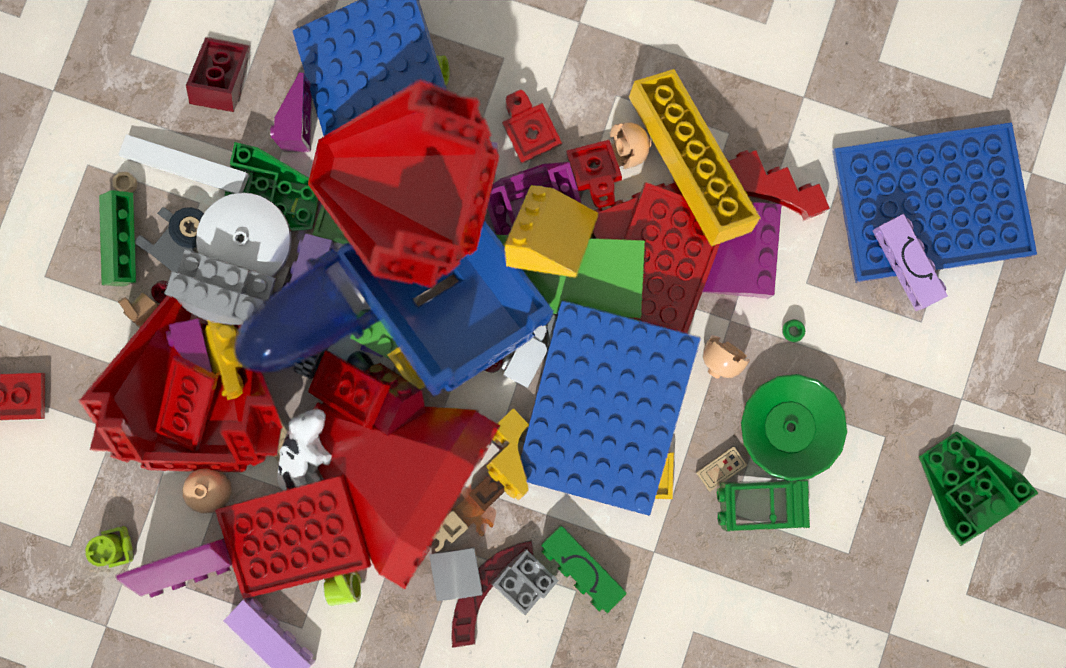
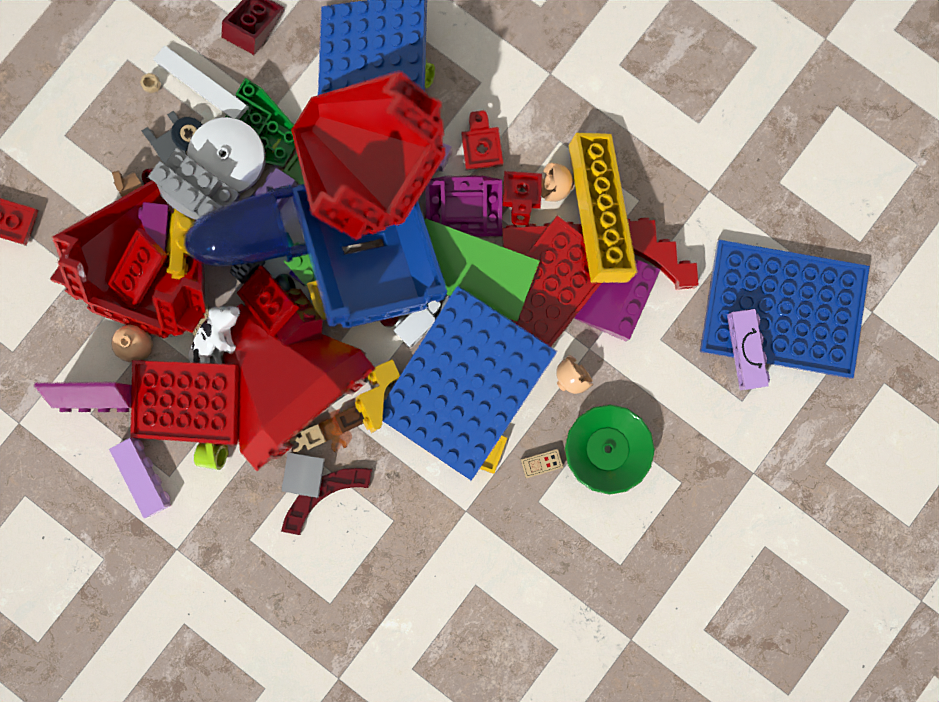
camera: 20 degrees right, 0 degrees up
(110, 548) = (41, 363): lime piece -> none
(117, 238) = (129, 123): green brick -> none
(293, 119) = (298, 74): magenta slope -> none
(524, 581) = (355, 499): light grey slope -> none
(550, 233) = (466, 229): yellow slope -> none
(584, 569) = (404, 504): green brick -> none
(796, 505) = (591, 508): green door -> none
(799, 327) = (643, 373): green plate -> none
(972, 486) = (737, 545): green wedge -> none

